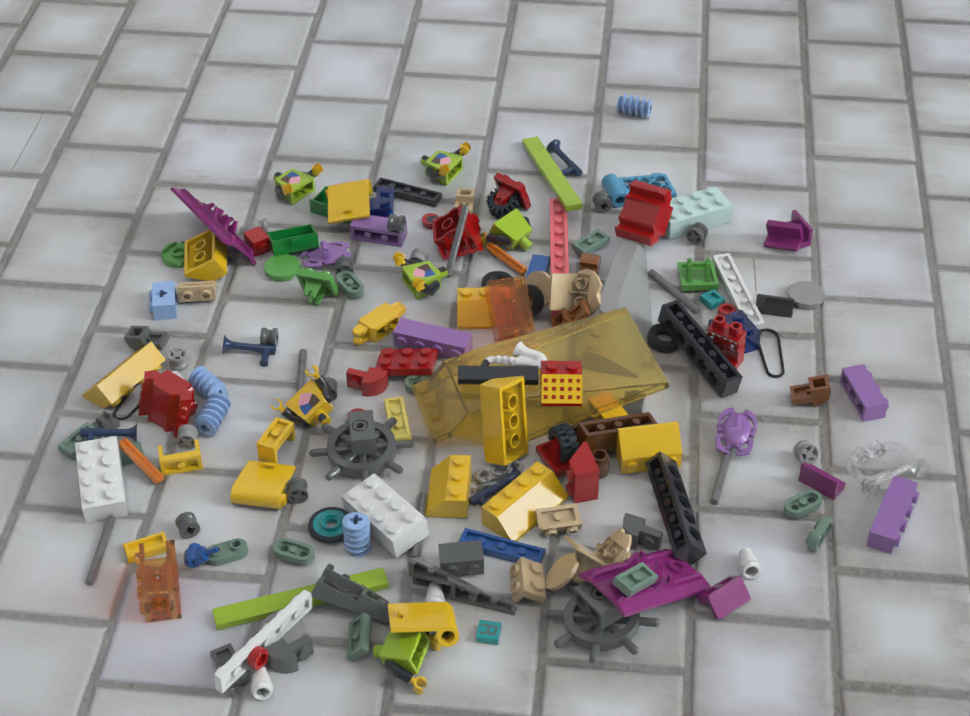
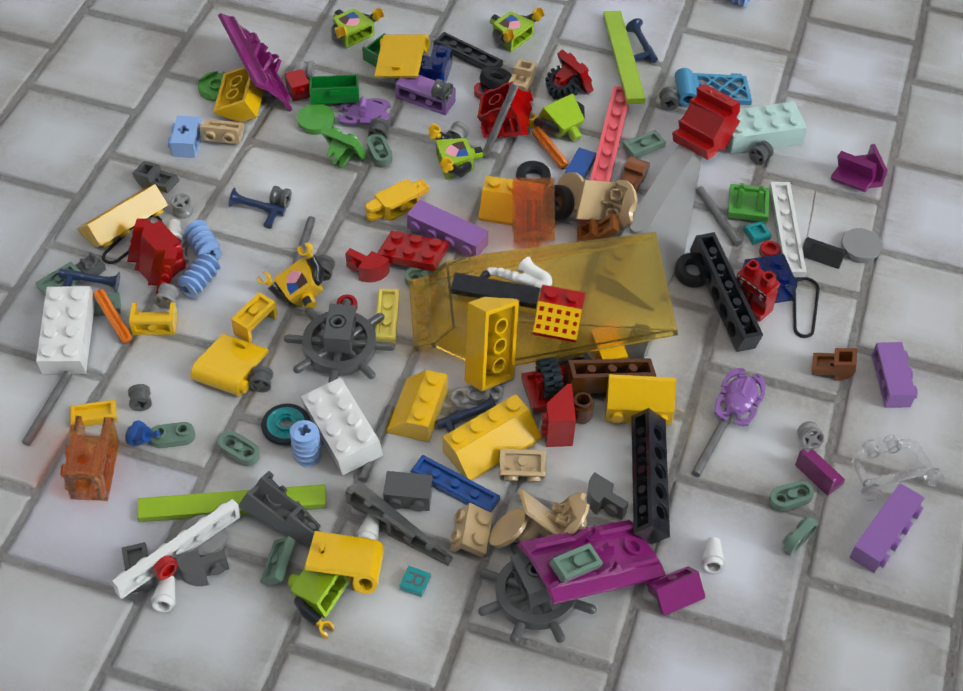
camera: 10 degrees right, 10 degrees up
(438, 207) = (490, 73): none -> black tyre

